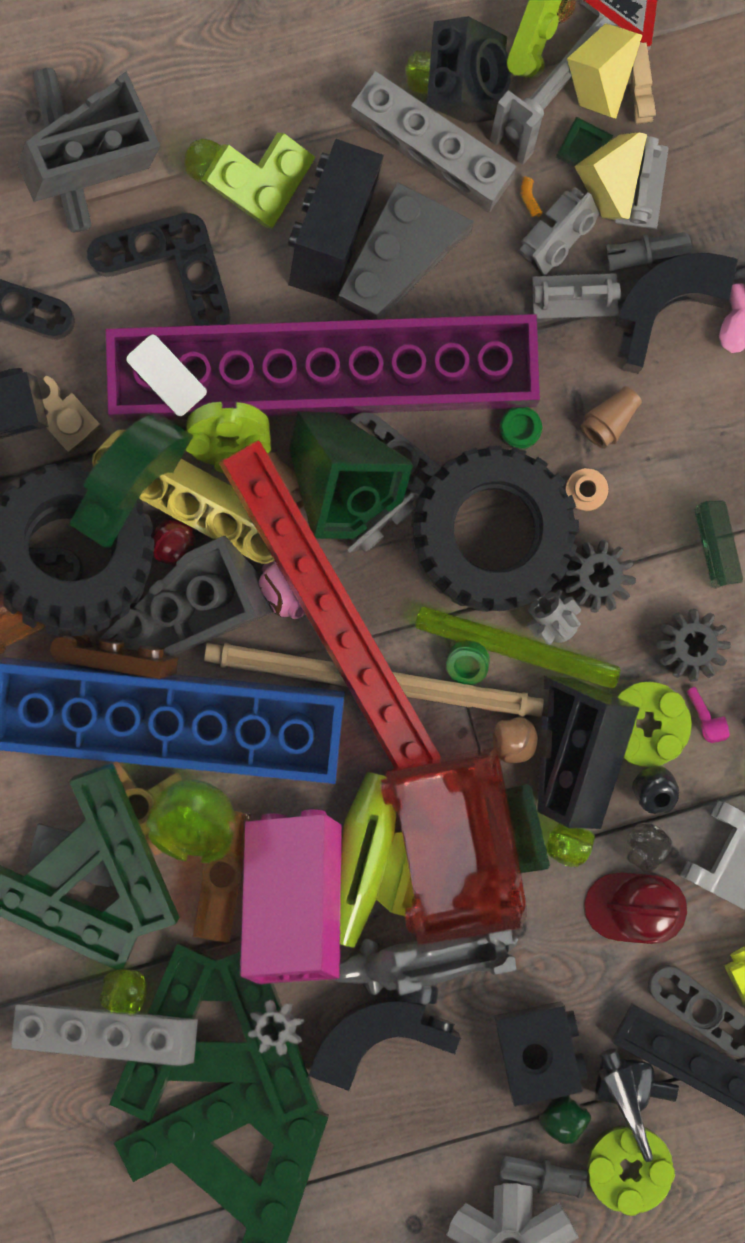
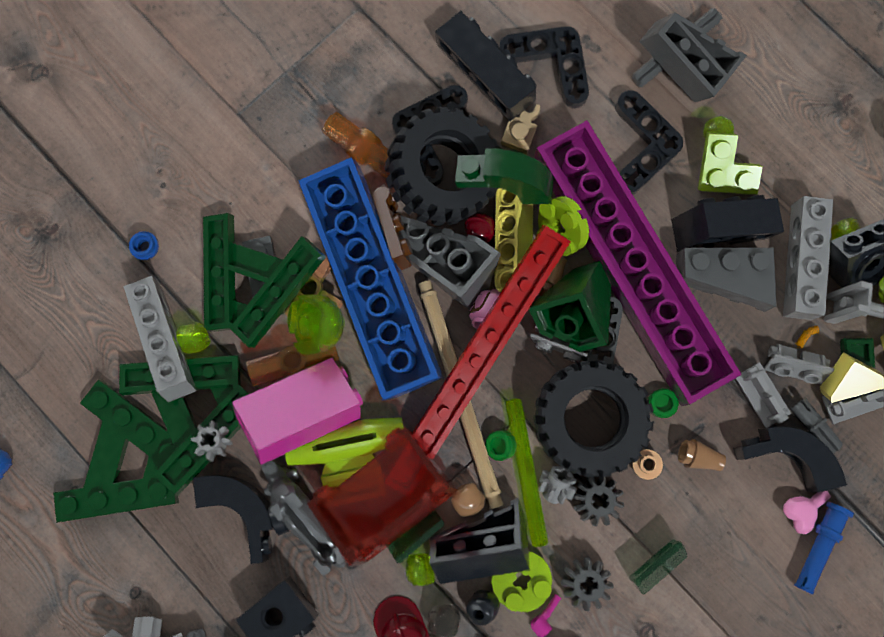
camera: 70 degrees right, 5 degrees down
(166, 375) = (579, 169): white sticker -> none

